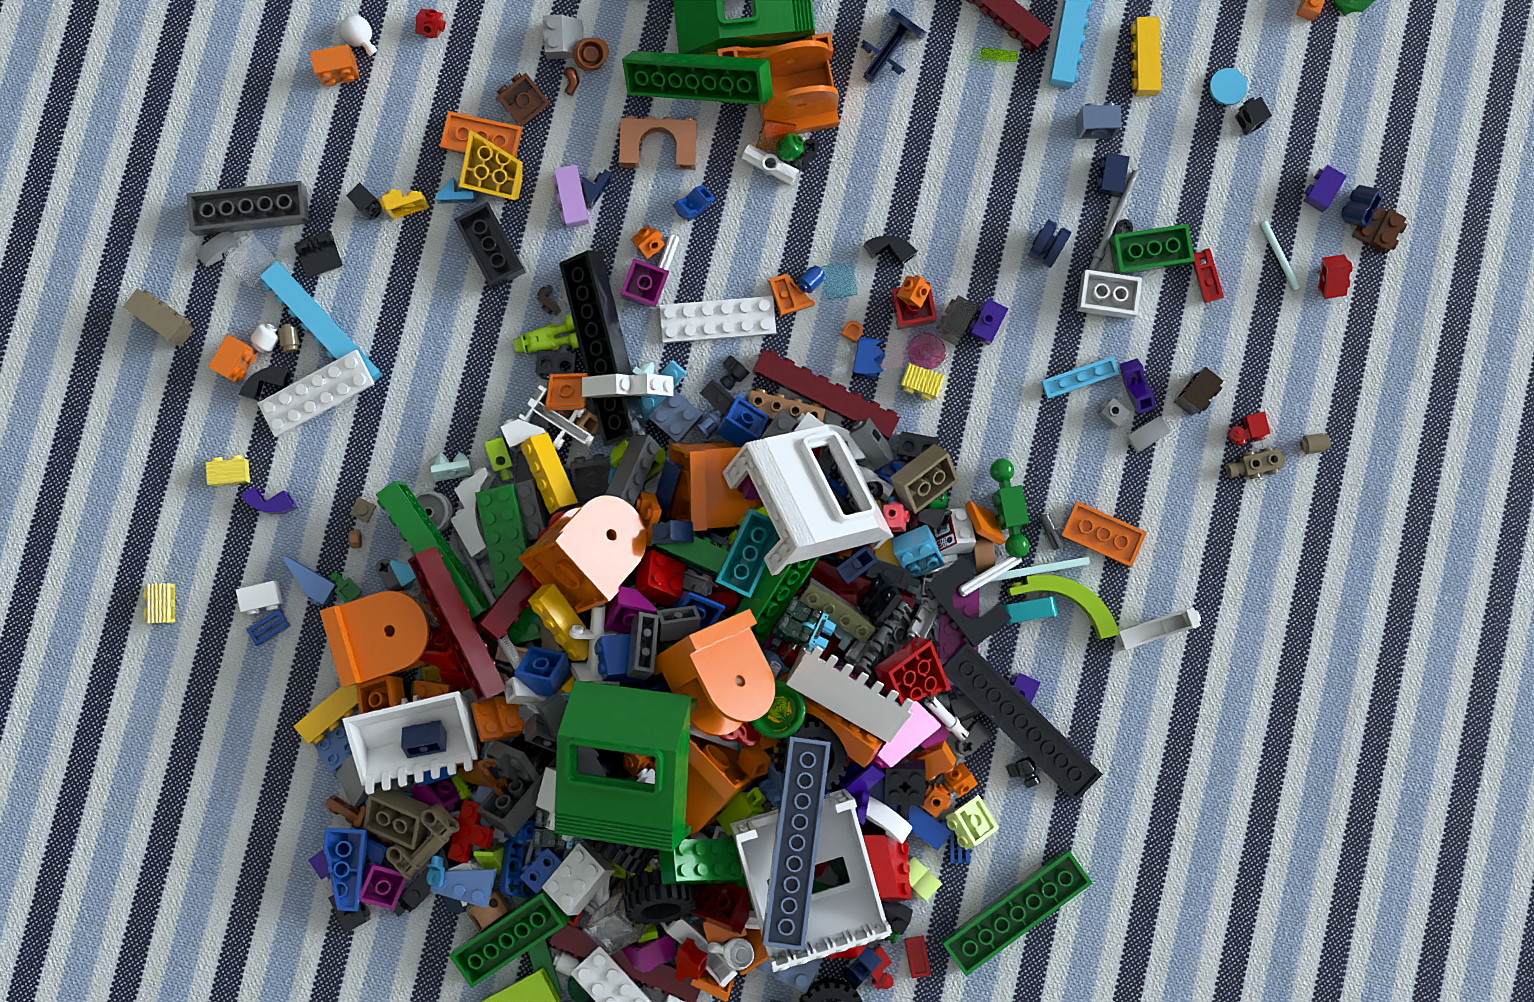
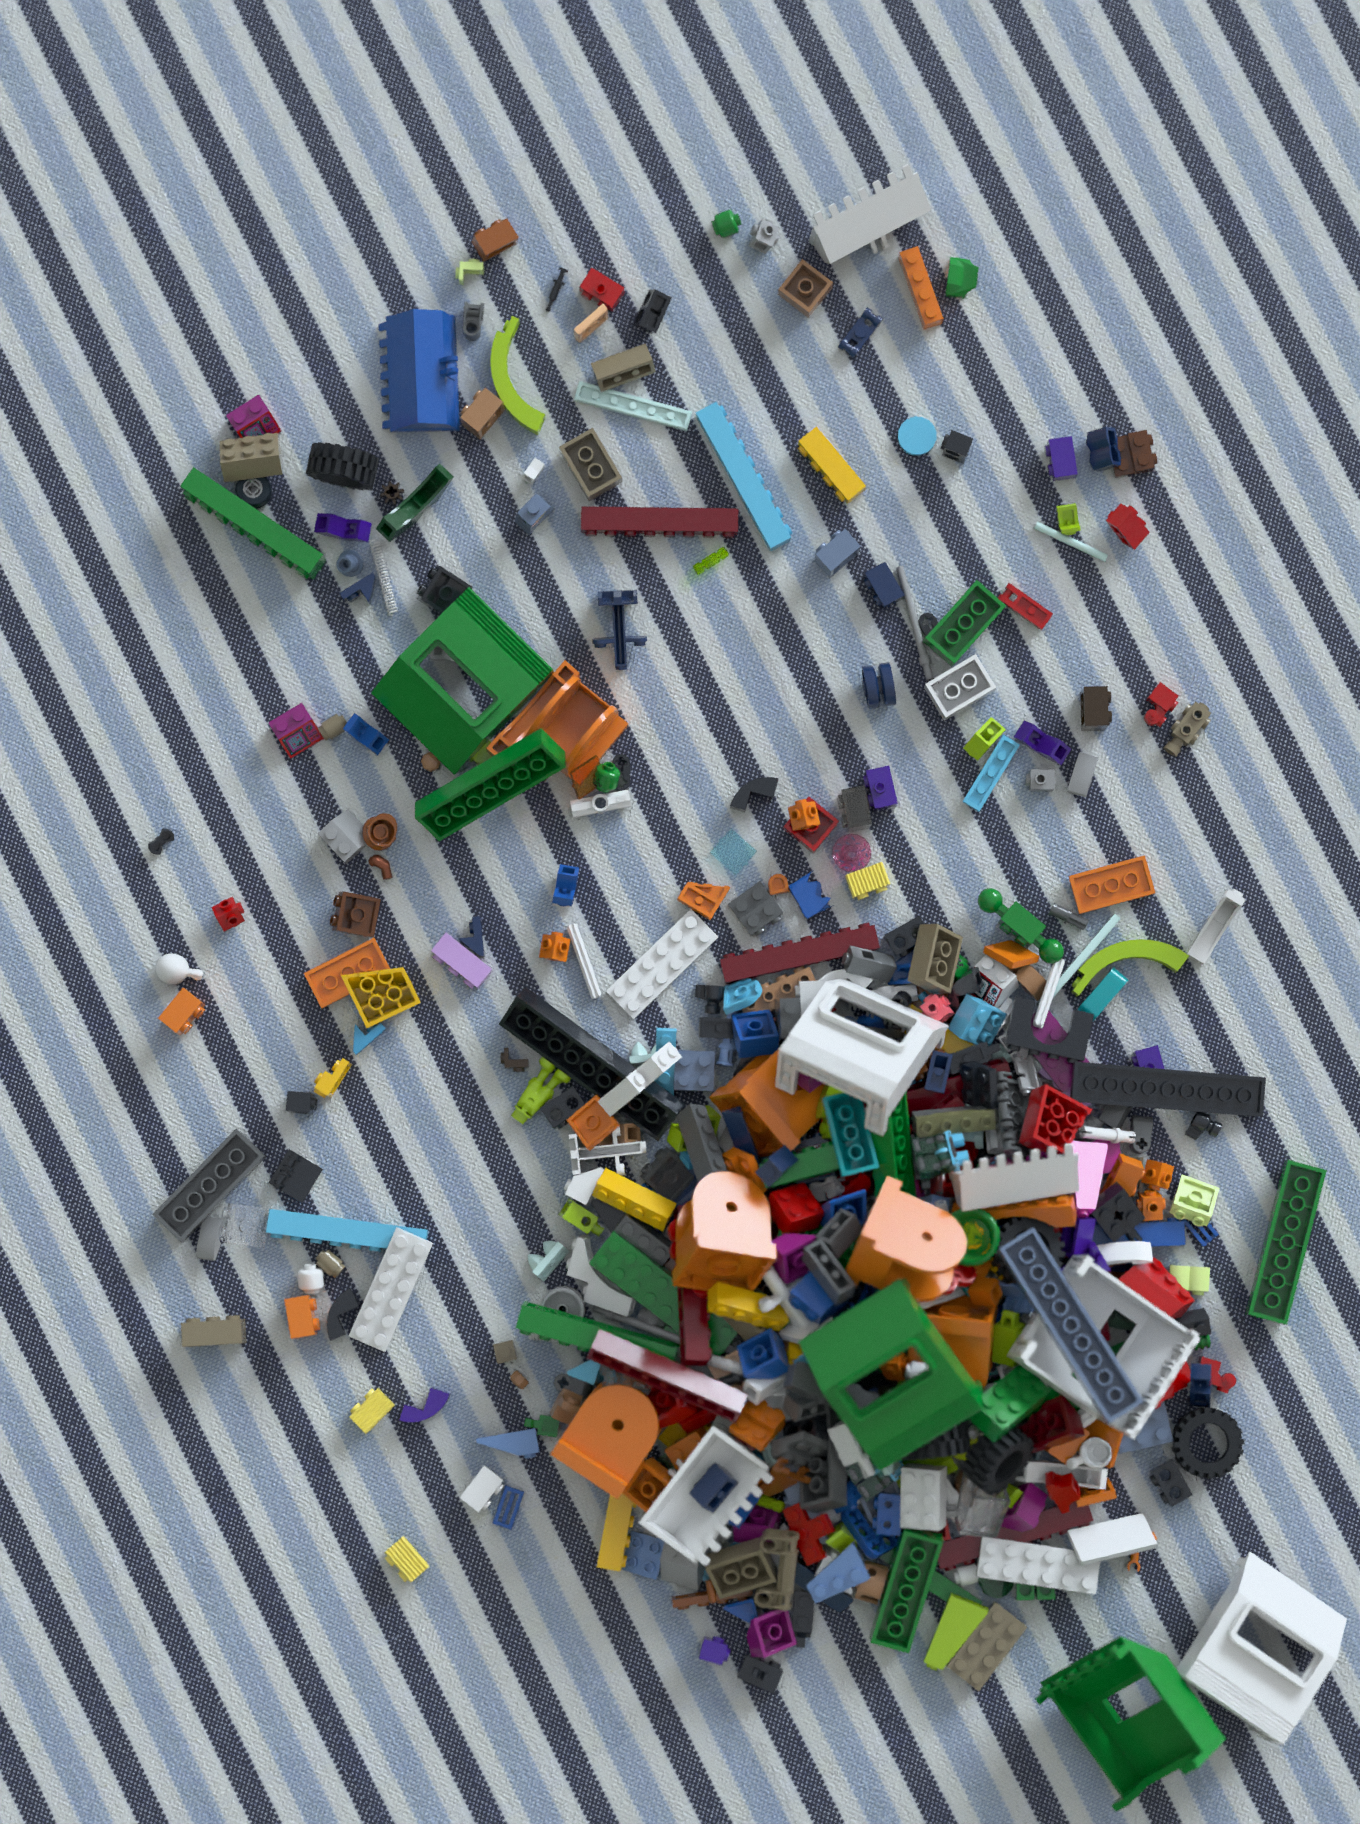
camera: 30 degrees left, 0 degrees up
(346, 859) = (728, 1633): blue wedge -> none
(370, 585) = (566, 1406): none -> medium nougat brick
(436, 872) = (809, 1585): dark azure piece -> none
(489, 246) = (430, 1055): black brick -> none
(635, 130) = (508, 835): nougat arch -> none
(644, 283) = (581, 984): magenta slope -> none
(670, 34) = (430, 762): none -> medium nougat tile
(756, 388) = (740, 994): none -> medium azure tile
(811, 279) = (710, 870): blue brick -> none
(821, 336) = (756, 909): none -> dark grey plate
(917, 956) = (1237, 1341): red tile -> none
(1095, 347) = (984, 738): none -> lime slope
(1292, 236) = (1068, 519): none -> lime bracket
(1315, 443) = (1221, 673): dark tan brick -> none

